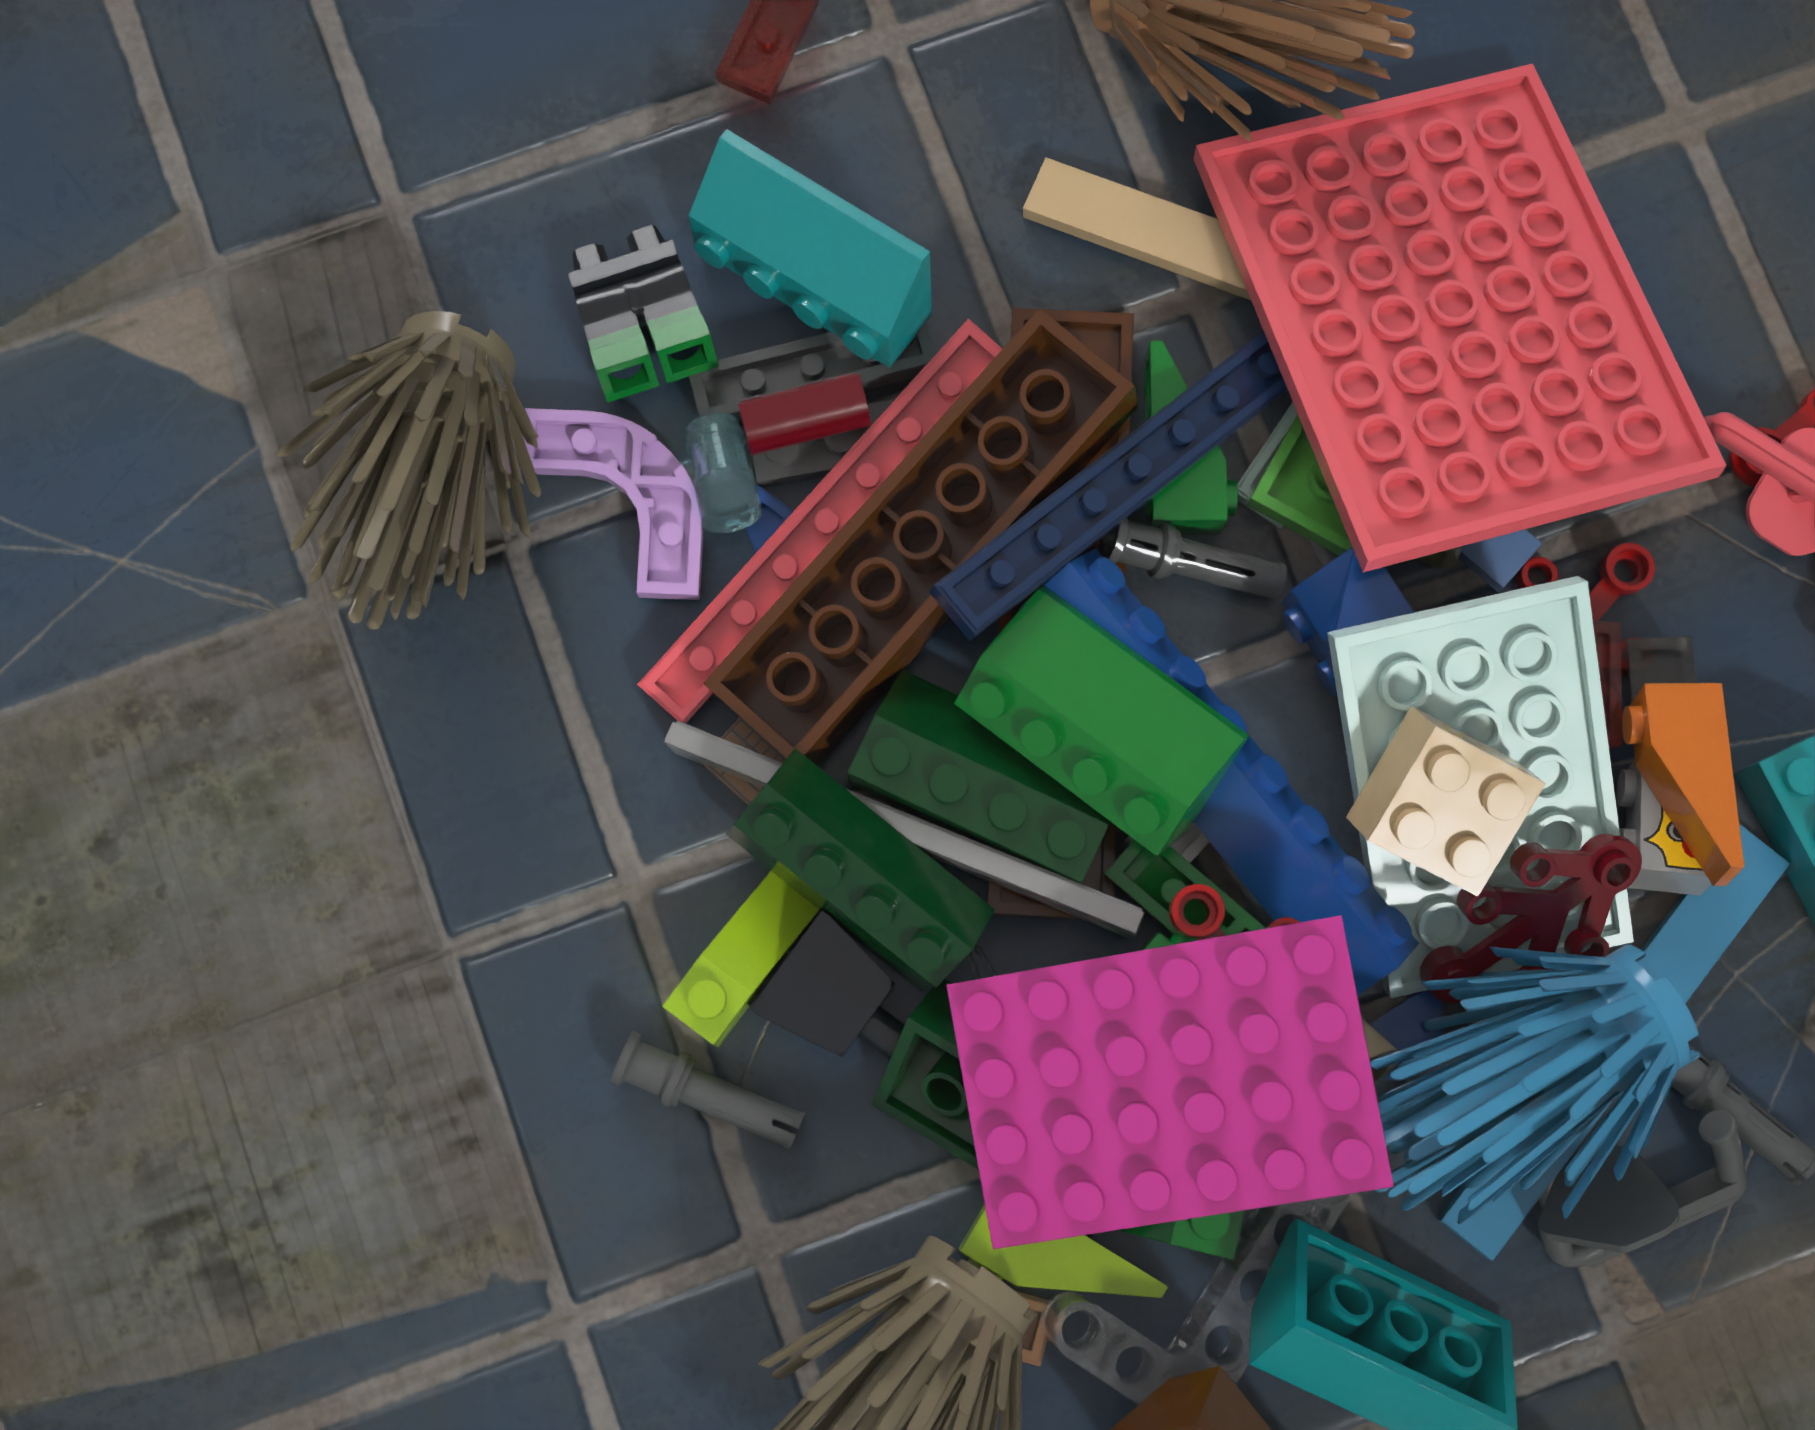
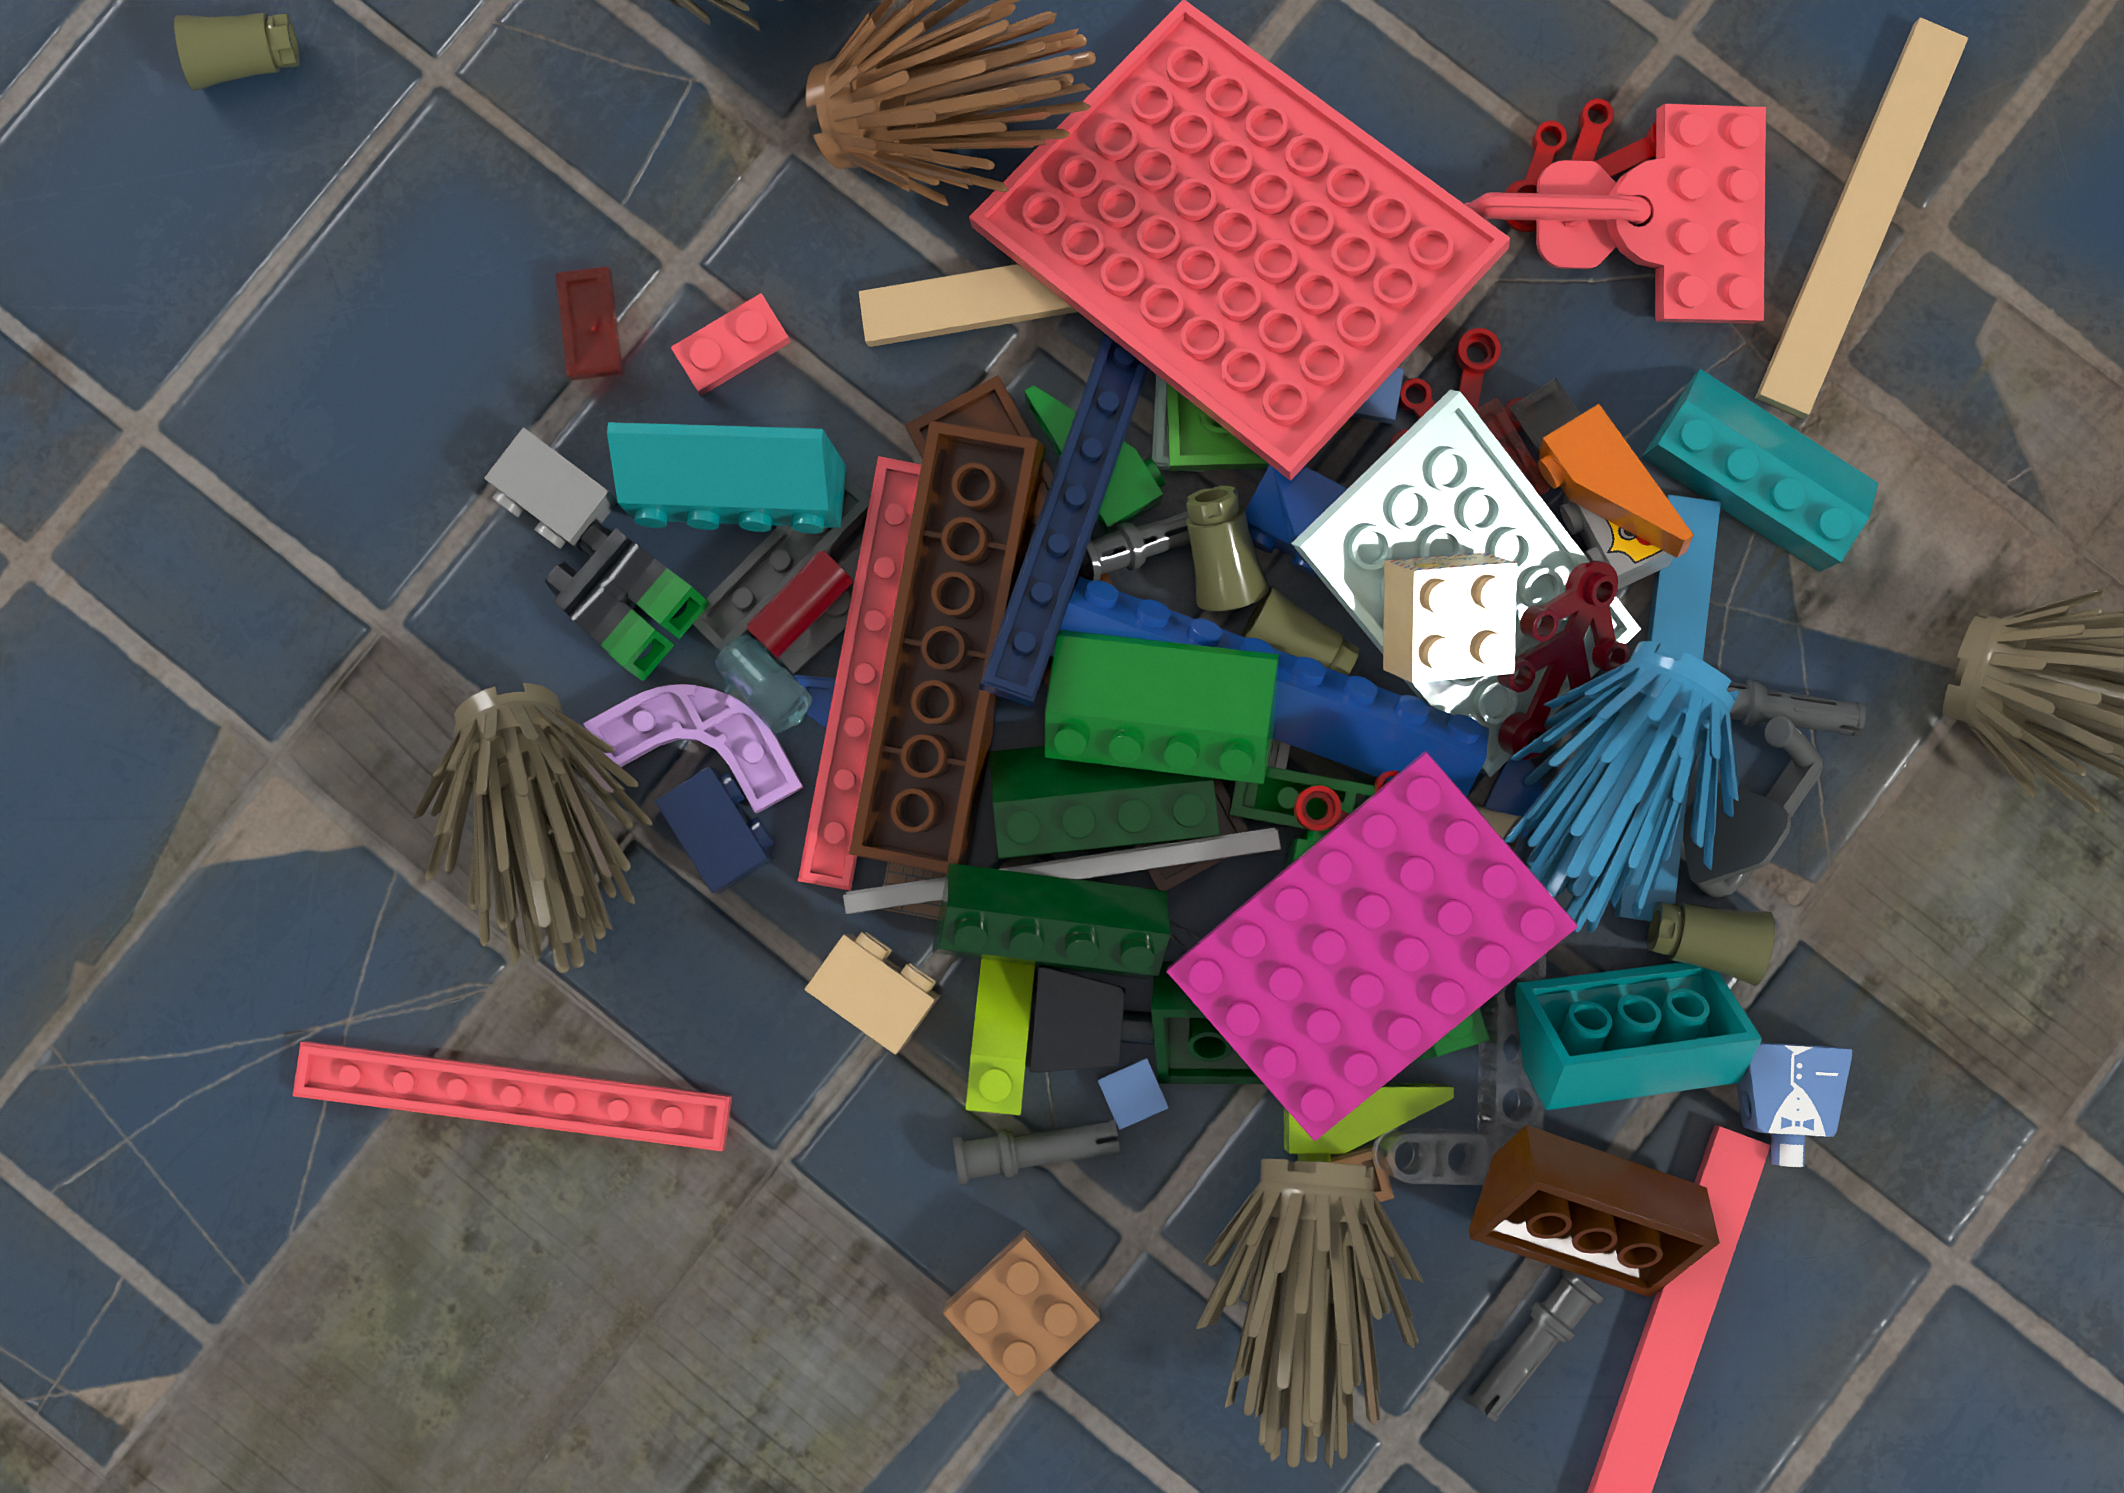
camera: 30 degrees left, 5 degrees up
(233, 729) = (512, 1095): none -> coral tile
(589, 586) = (716, 829): none -> dark blue brick
(593, 1248) = (1021, 1312): none -> medium nougat brick
(632, 169) = (550, 489): none -> light grey brick
(642, 833) = (873, 990): none -> tan brick
(839, 1097) = (1132, 1093): none -> medium blue tile
(891, 136) = (731, 344): none -> coral plate
(1254, 610) = (1223, 551): none -> olive plant
(1281, 734) = (1299, 633): none -> olive plant
(1527, 1300) = (1714, 938): none -> olive plant

